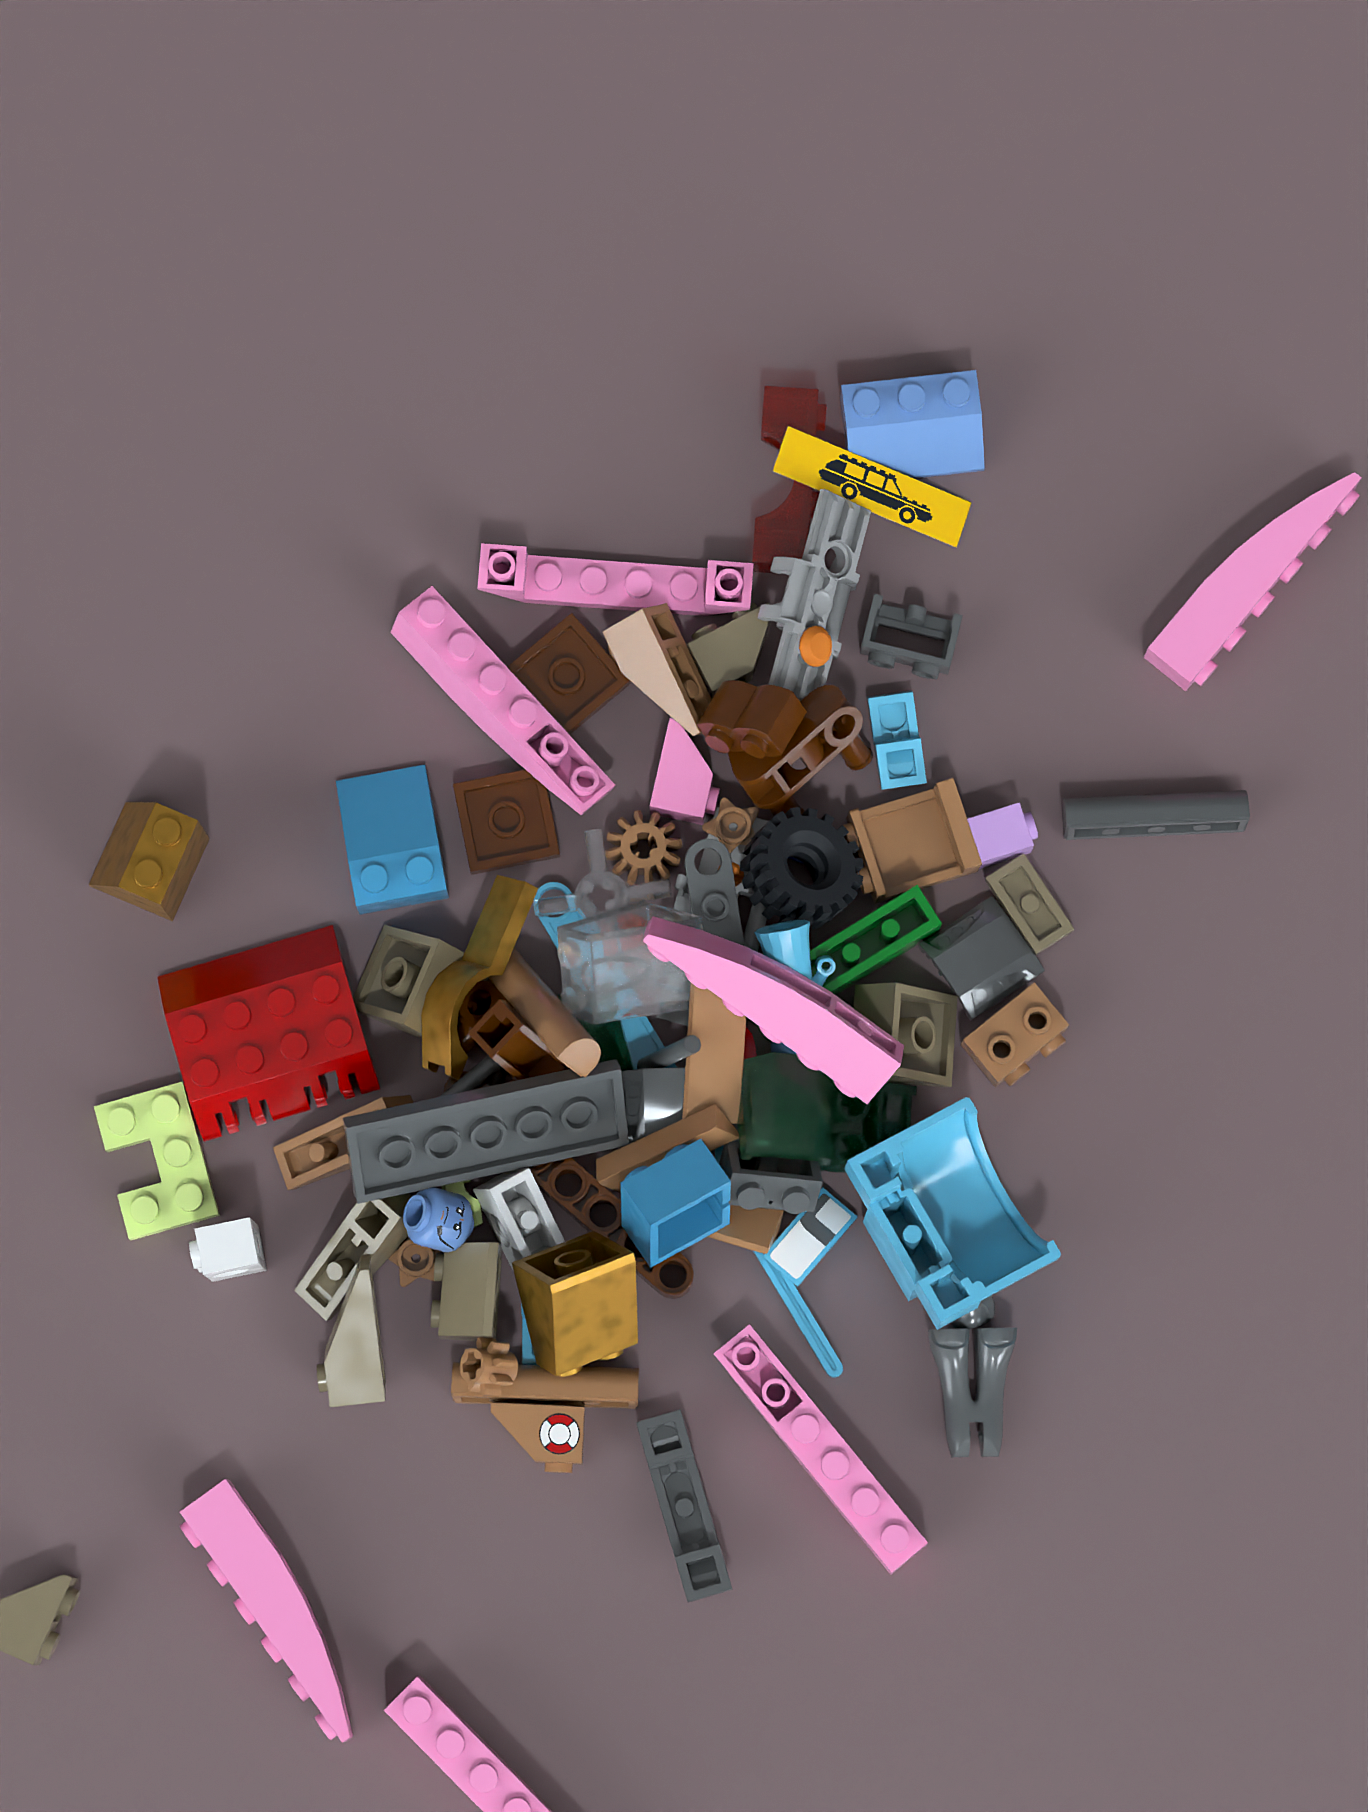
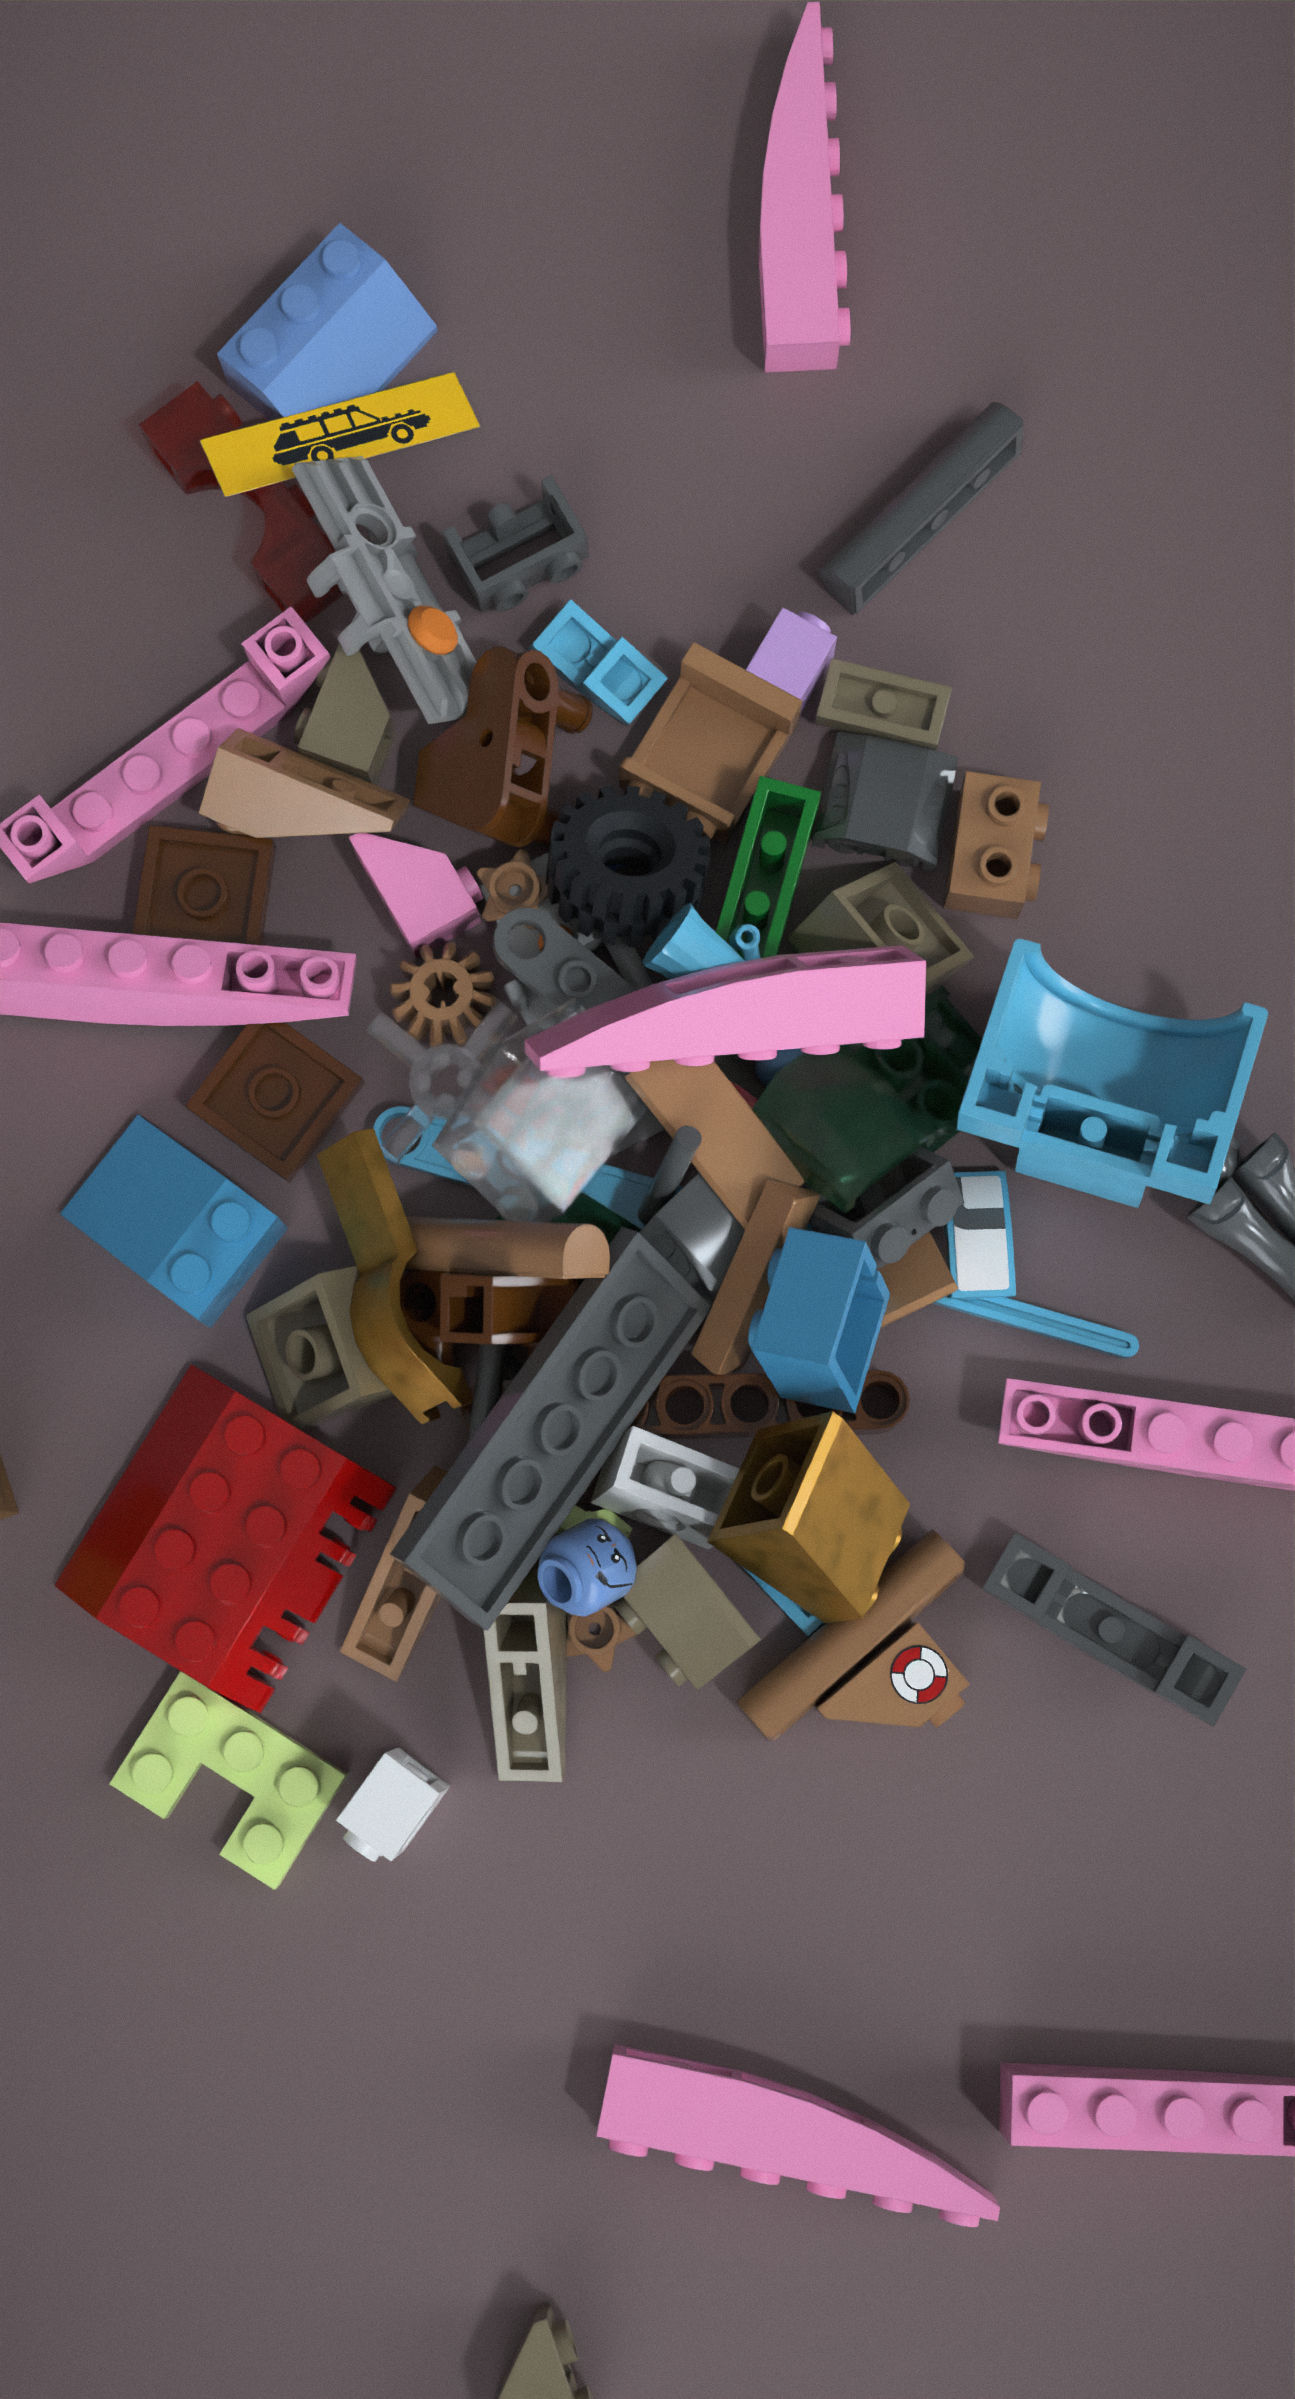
camera: 40 degrees left, 0 degrees up
(353, 1355) = (622, 1788): slope -> none
(488, 1366) = (784, 1674): medium nougat gear -> none
(751, 719) = (435, 756): reddish brown brick -> none

